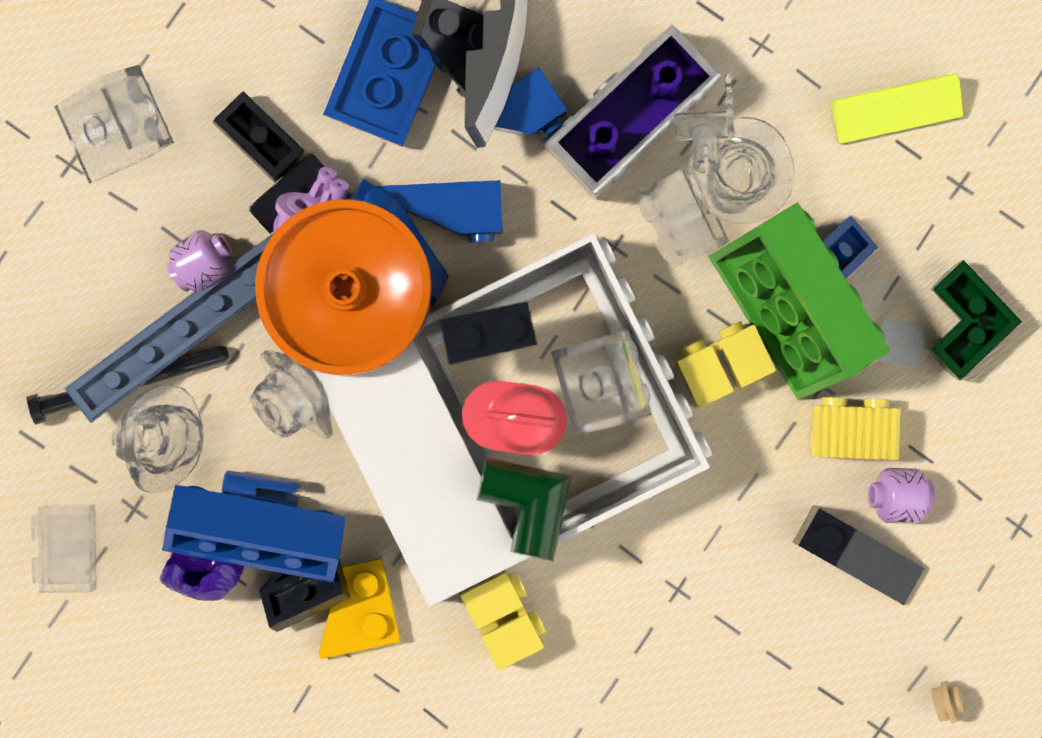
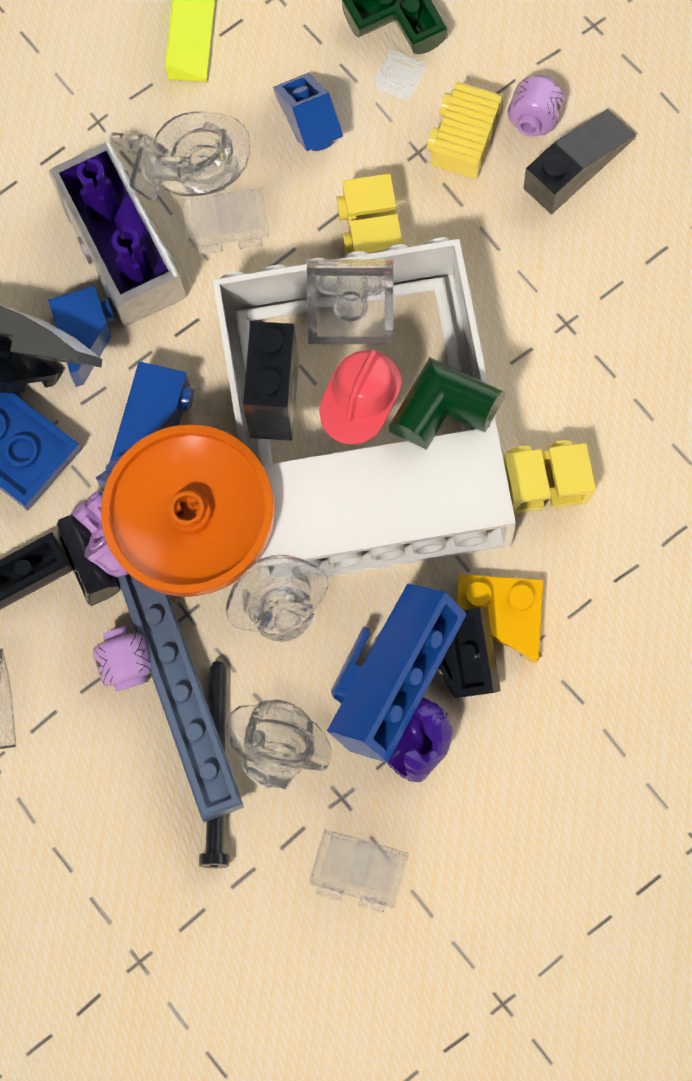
camera: 70 degrees left, 15 degrees down
(800, 302) = (333, 131): bright green slope -> none

